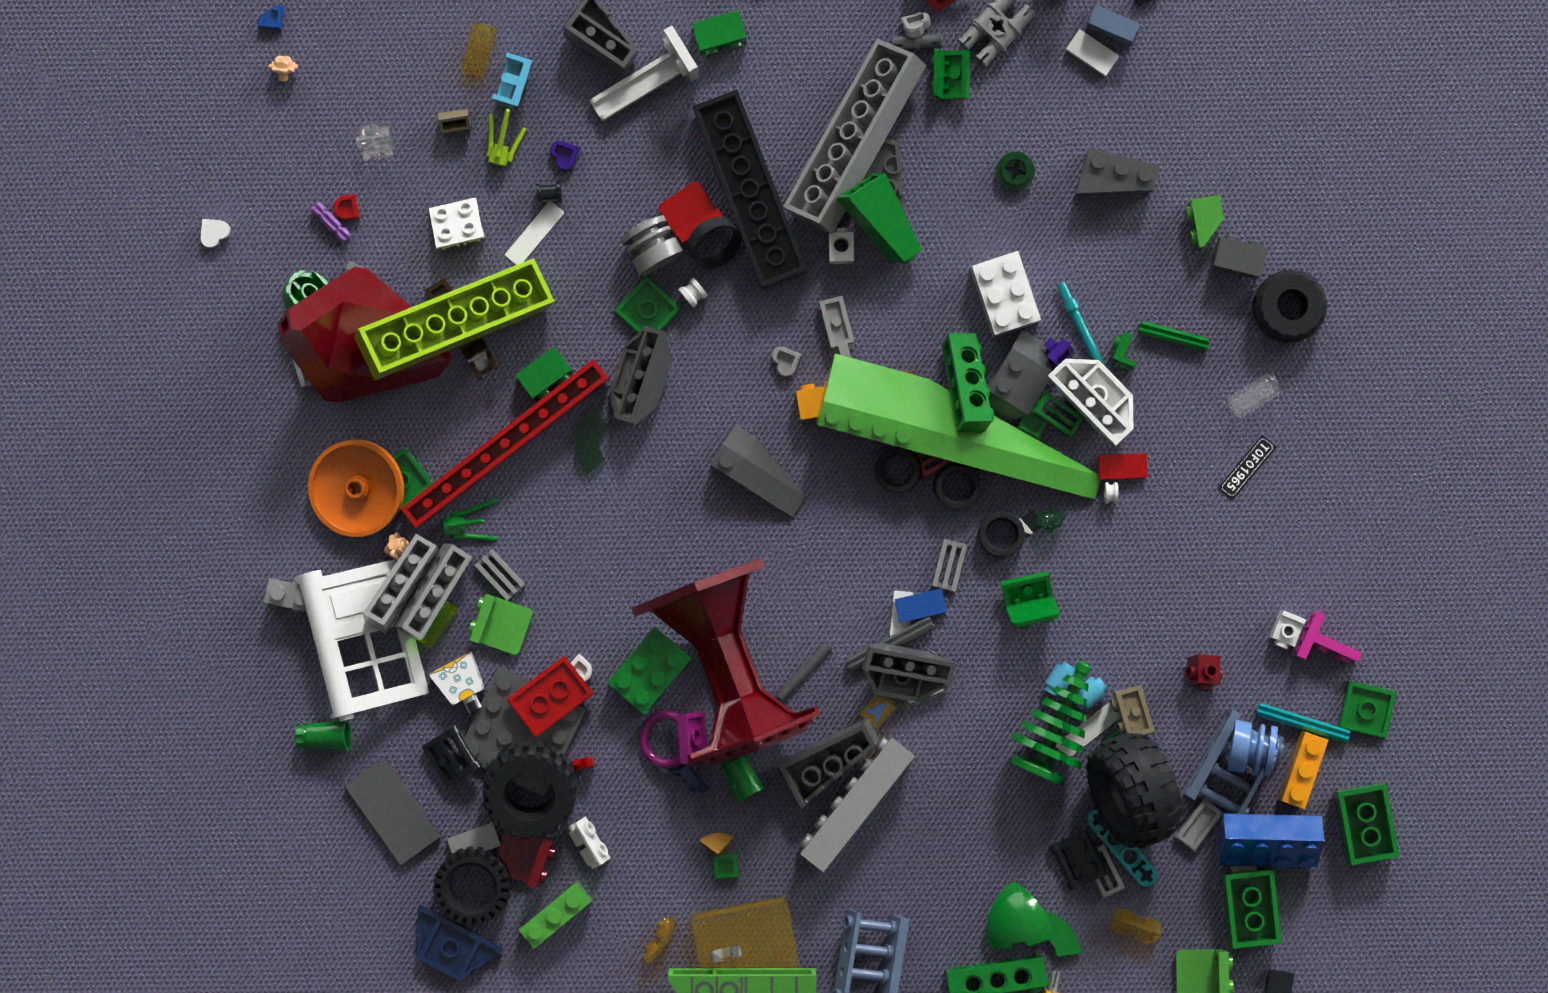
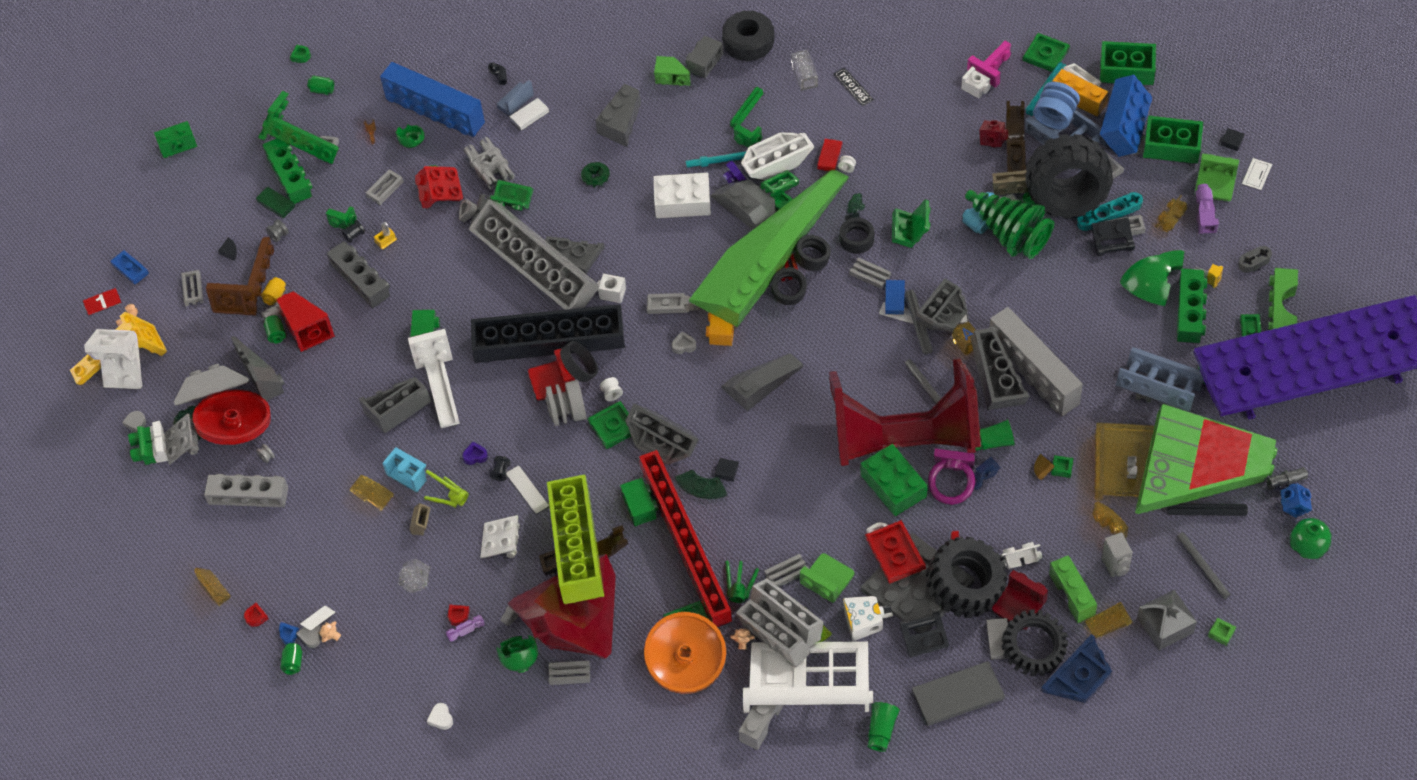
camera: 70 degrees left, 30 degrees down
(238, 36) = (291, 659): none -> green brick
(277, 45) = (310, 637): none -> light grey tile
(298, 46) = (317, 618): none -> white sticker
(530, 964) = (1109, 620): none -> clear yellow slope
(607, 959) = (1117, 555): none -> light grey brick
(619, 465) = (727, 469): none -> black tile
(881, 217) = (600, 250): green slope -> none
(967, 417) = (738, 224): green brick -> none
(1149, 969) = (1206, 210): none -> medium lavender piece
(1203, 703) = (1015, 142): none -> dark brown piece
(1330, 764) = (1078, 71): none -> white tile

